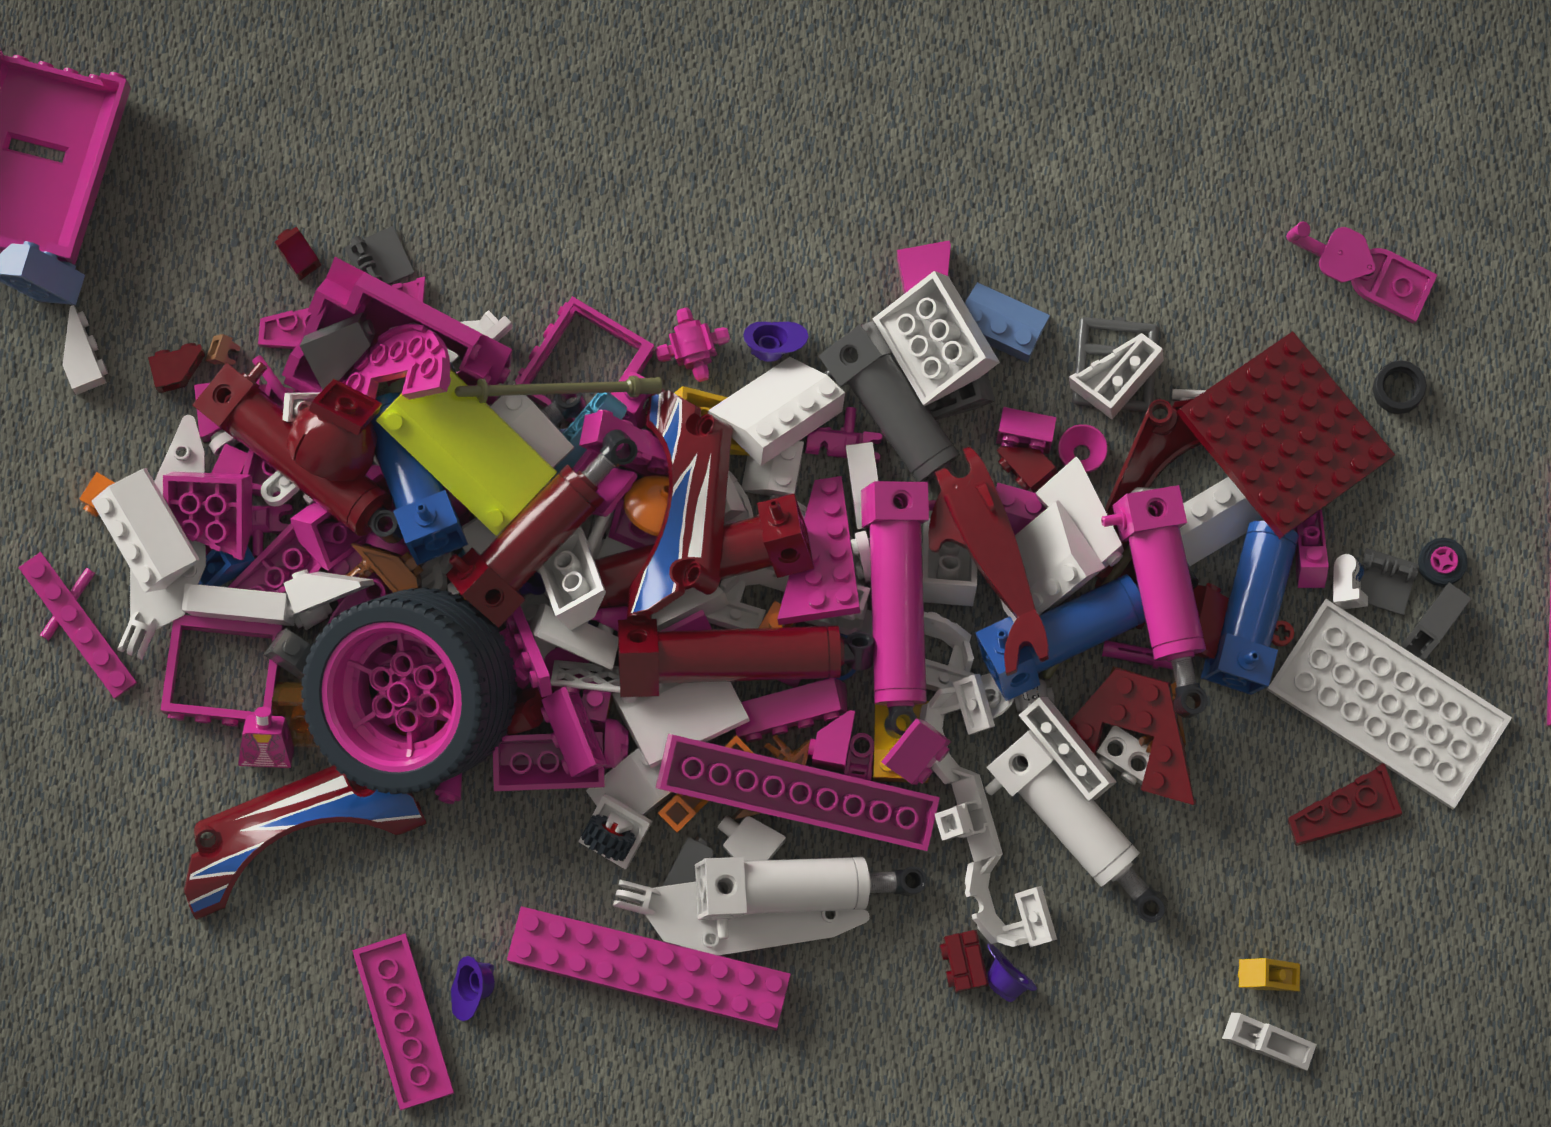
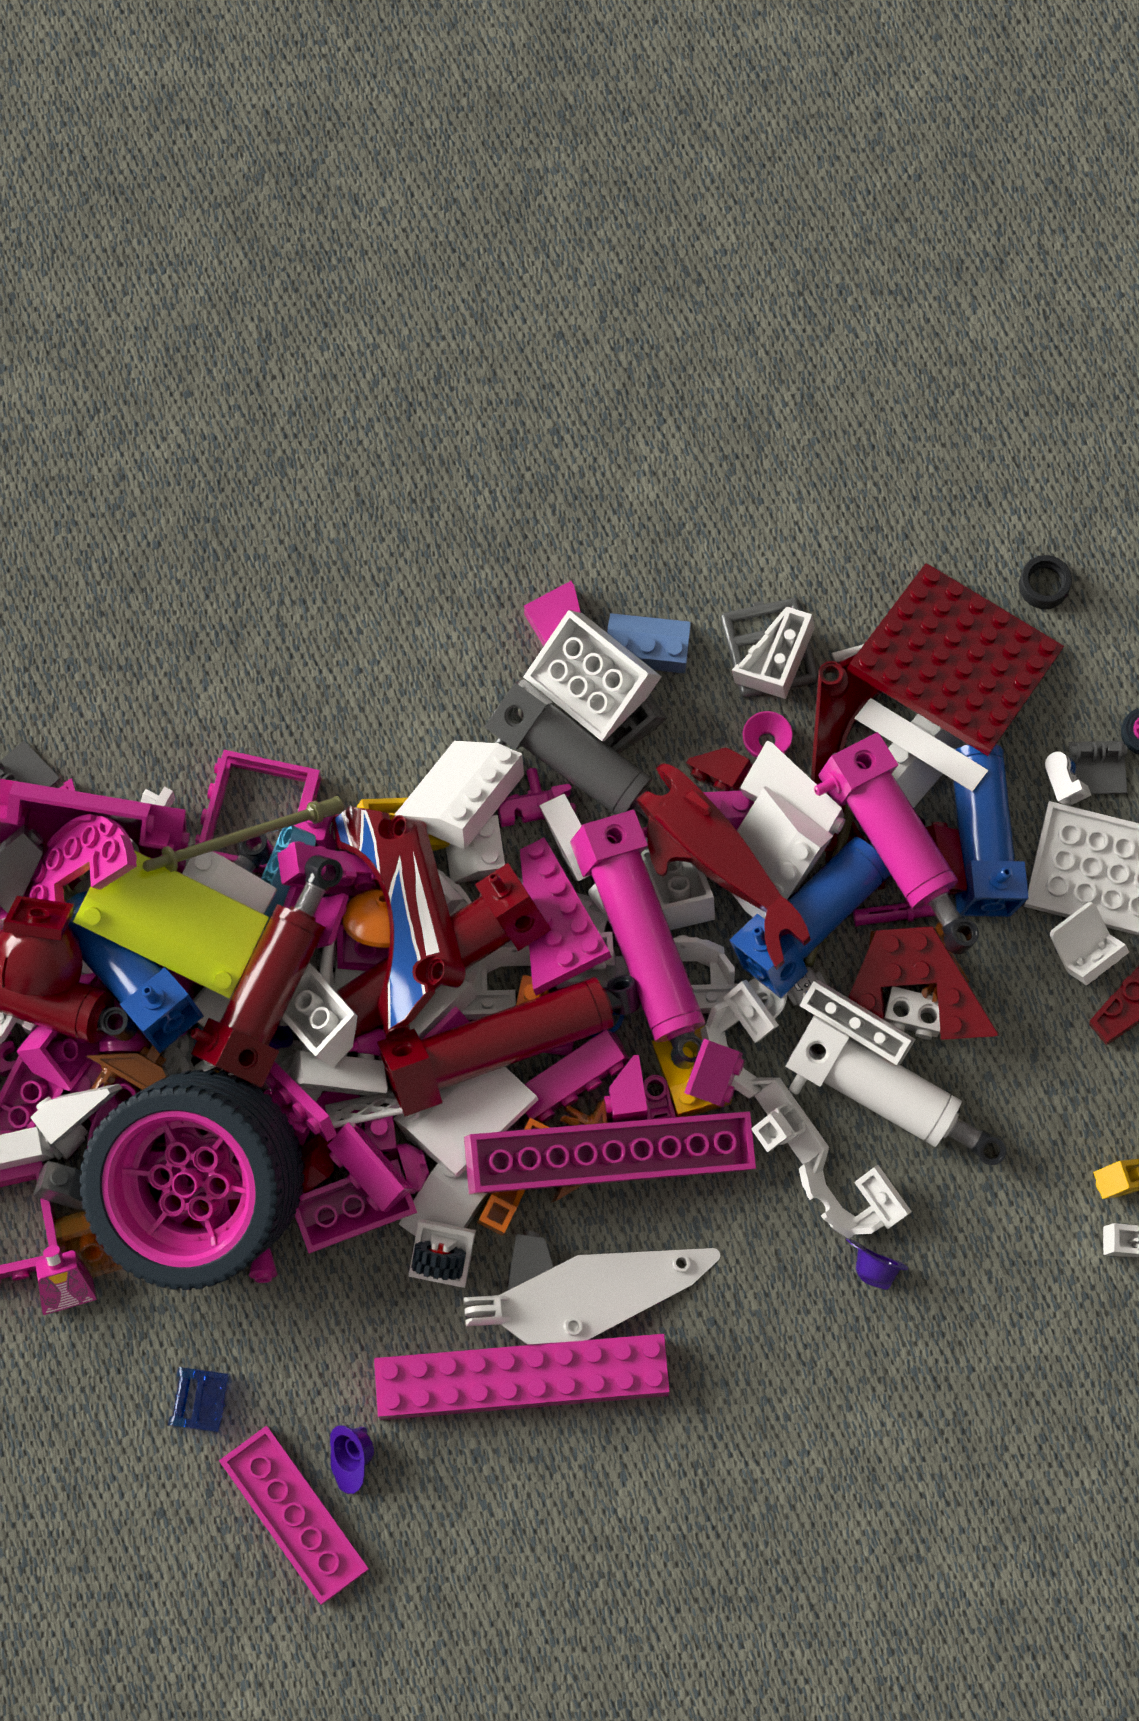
camera: 20 degrees left, 5 degrees down
(255, 824) = (80, 1367): dark red panel -> none
(360, 894) = (208, 1401): none -> clear blue plate
(692, 344) = (357, 758): dark pink piece -> none
(750, 839) = (579, 1220): white torso -> none
(774, 339) = (434, 729): dark purple piece -> none
(792, 886) = (635, 1247): white piece -> none
(861, 547) = (589, 896): plate -> none
(964, 960) = (828, 1264): dark red brick -> none
(1025, 430) = (706, 734): dark pink slope -> none
(1222, 506) = (921, 744): none -> white sticker
(1287, 628) = (1022, 841): red bush -> none
(1311, 553) = (1021, 764): dark pink slope -> none
(1311, 746) = (1086, 944): none -> white bracket
(1394, 281) = (1004, 489): dark pink plate -> none

